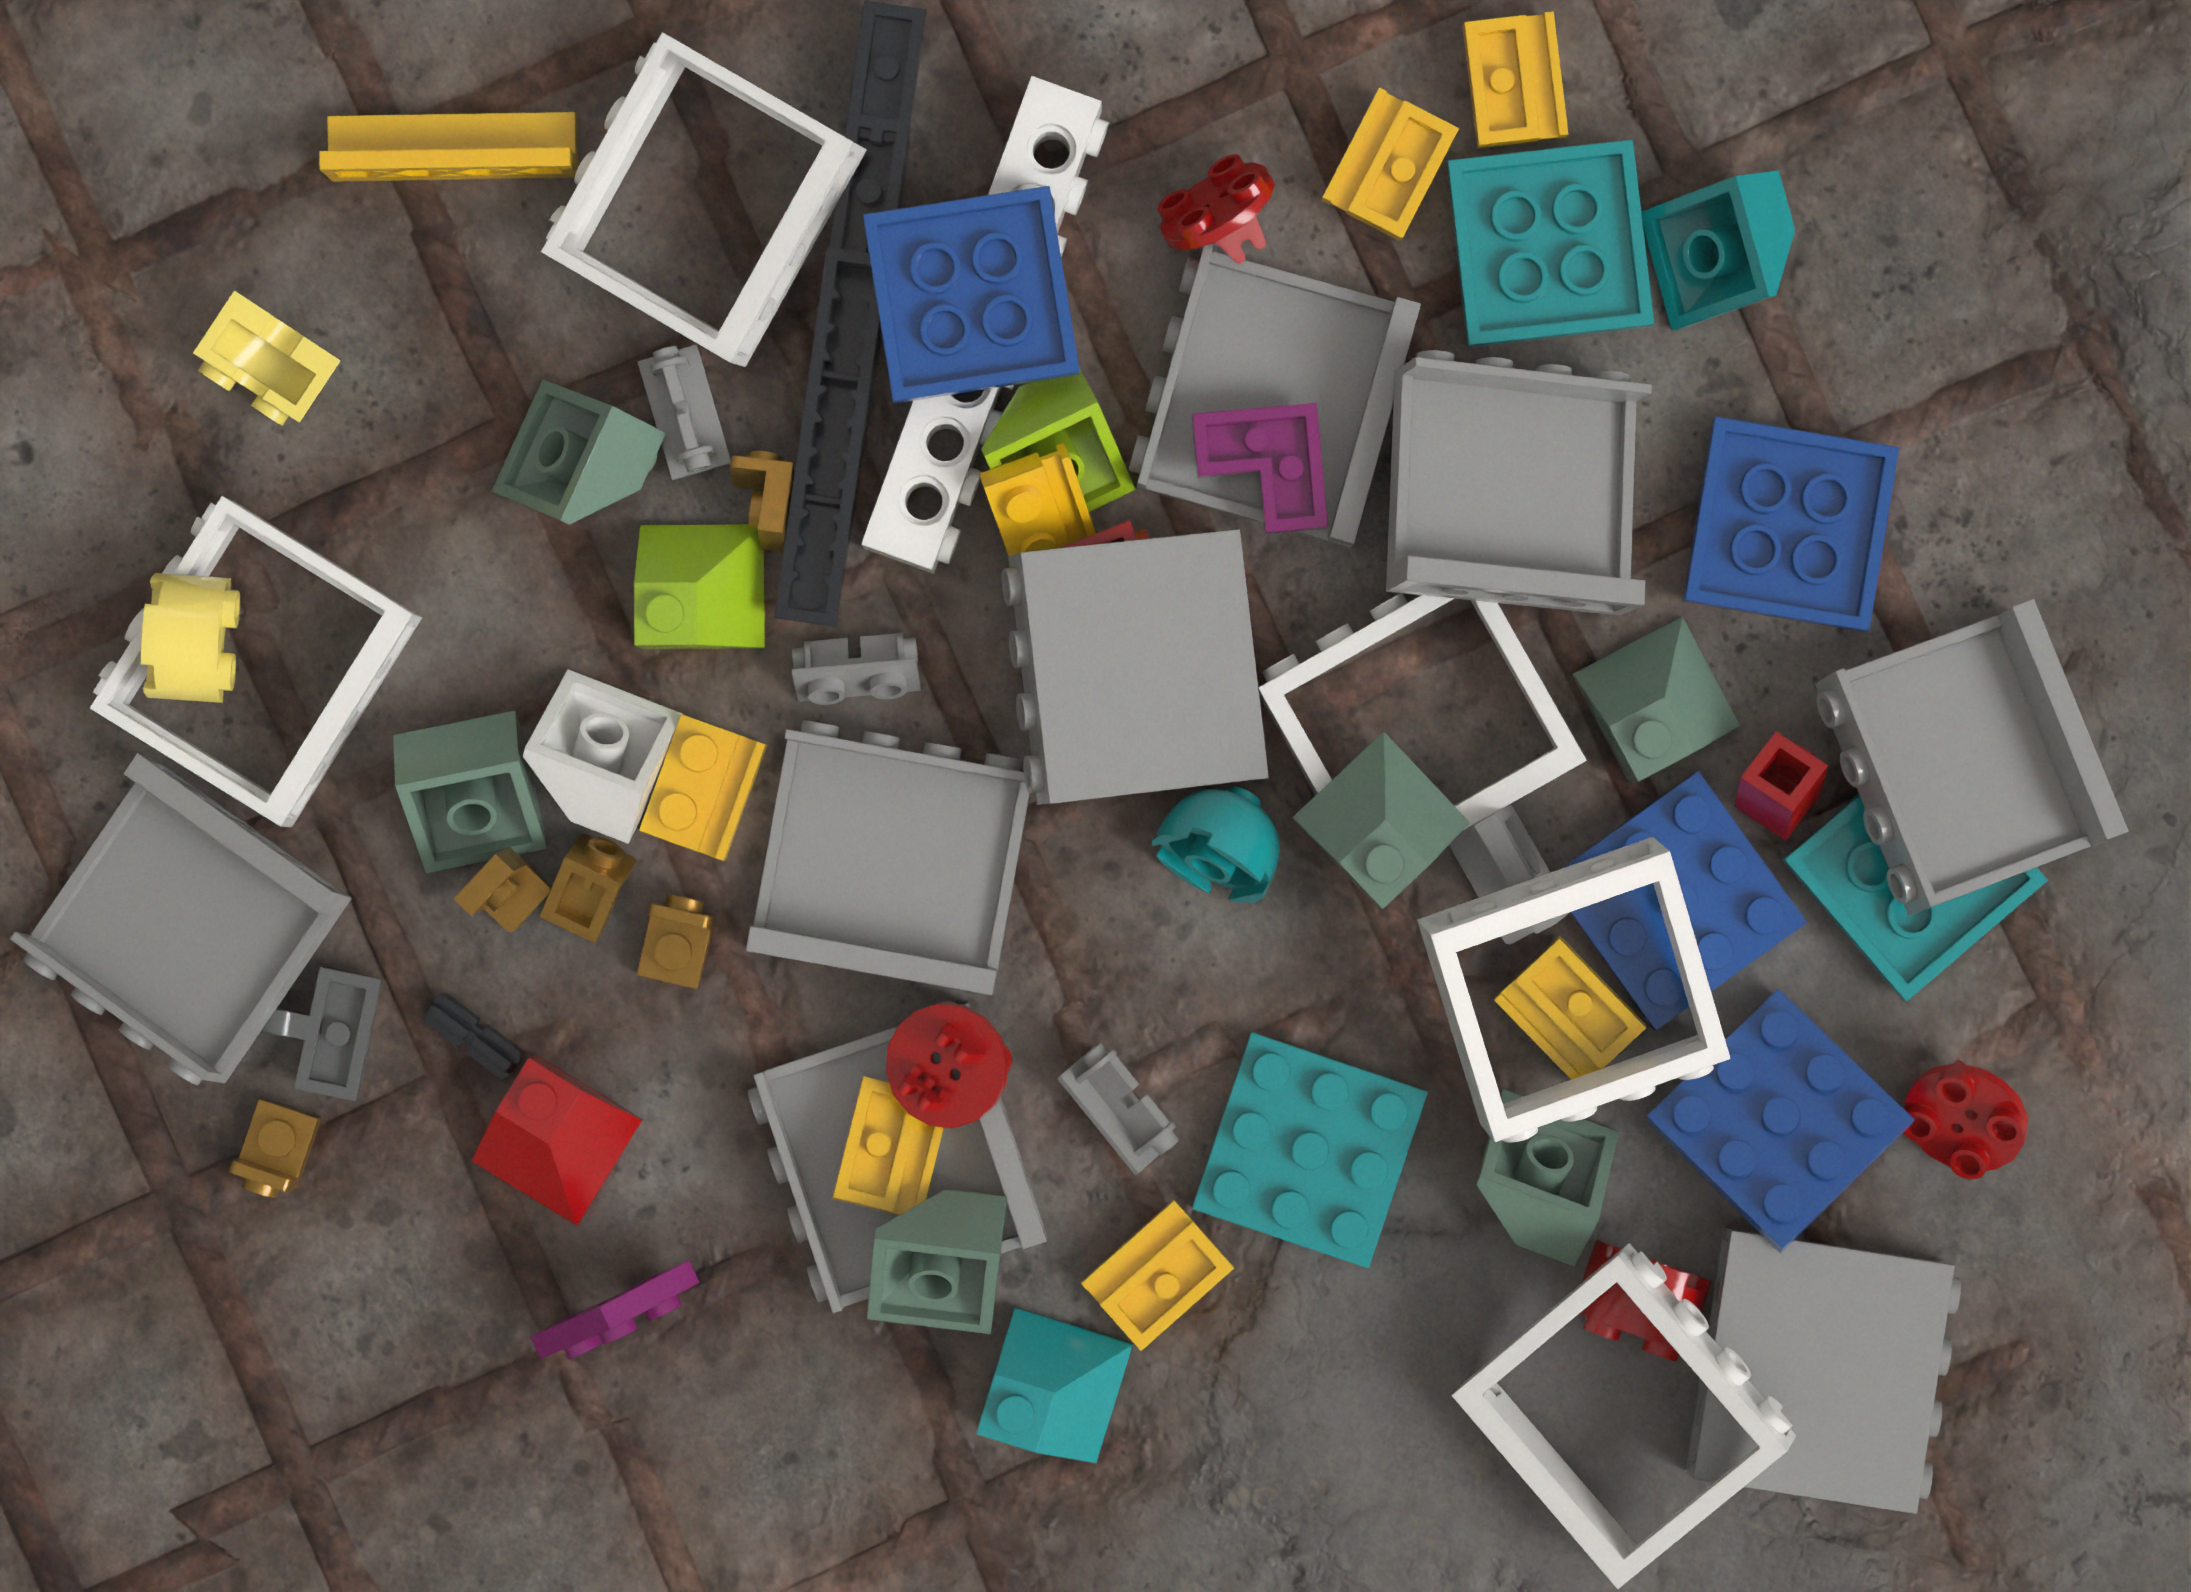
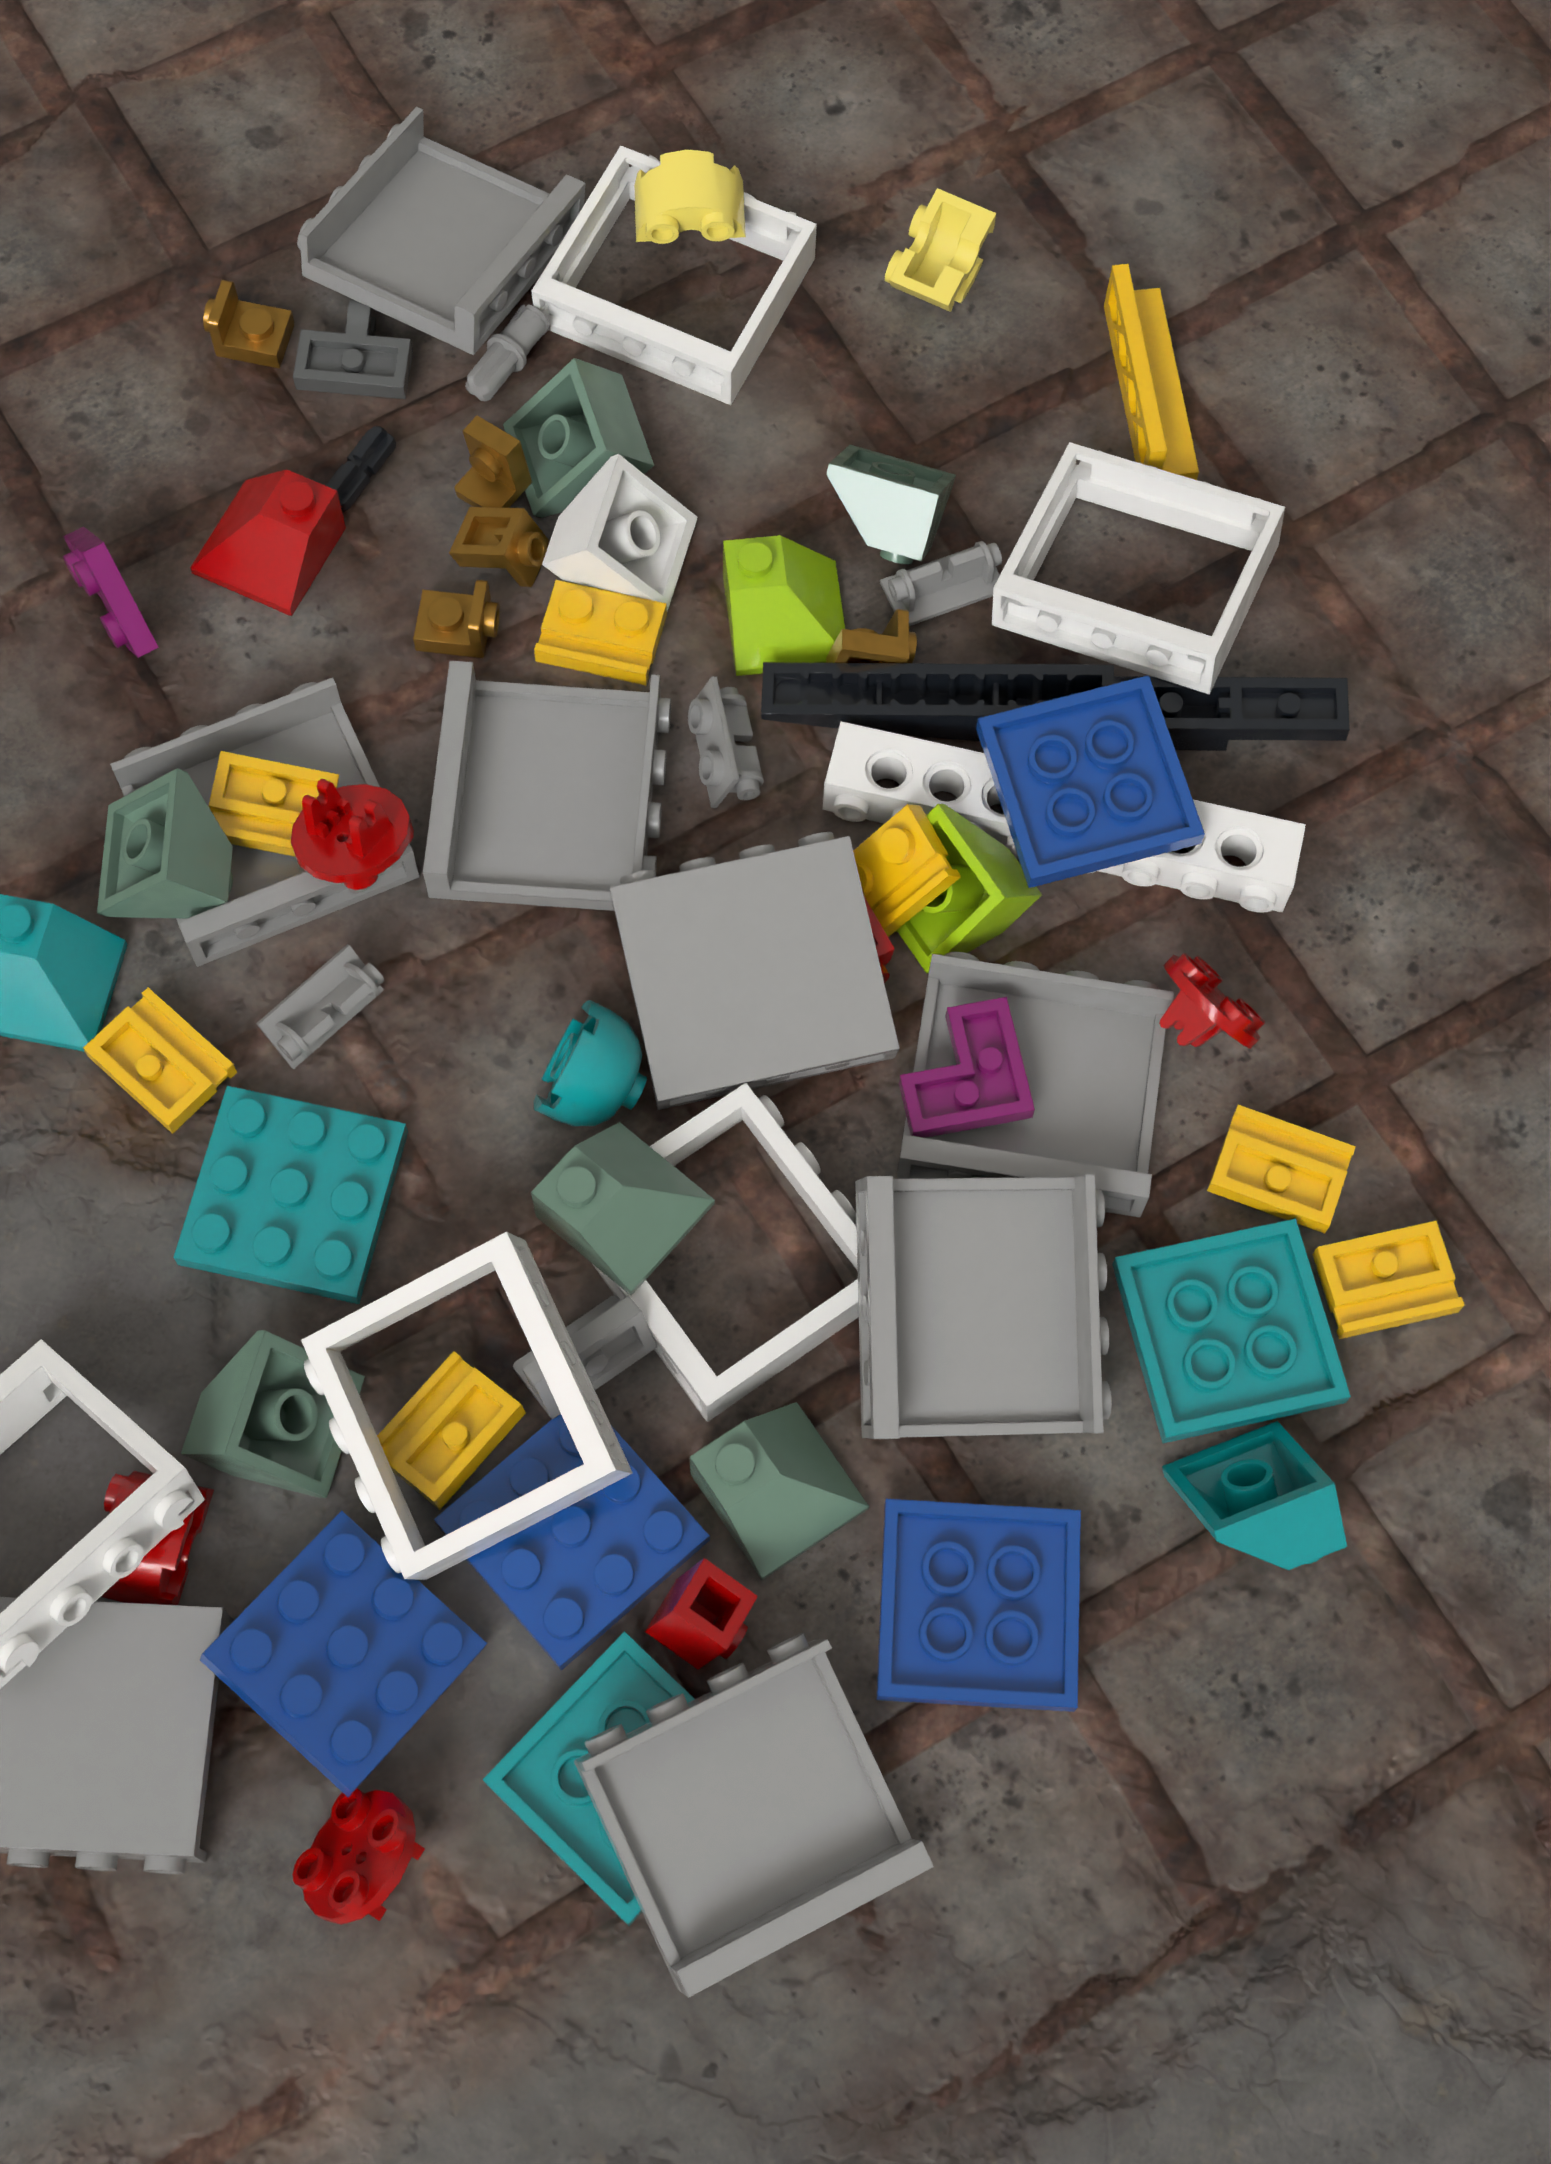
camera: 80 degrees right, 20 degrees down
(339, 861) = (507, 352): none -> light grey axle

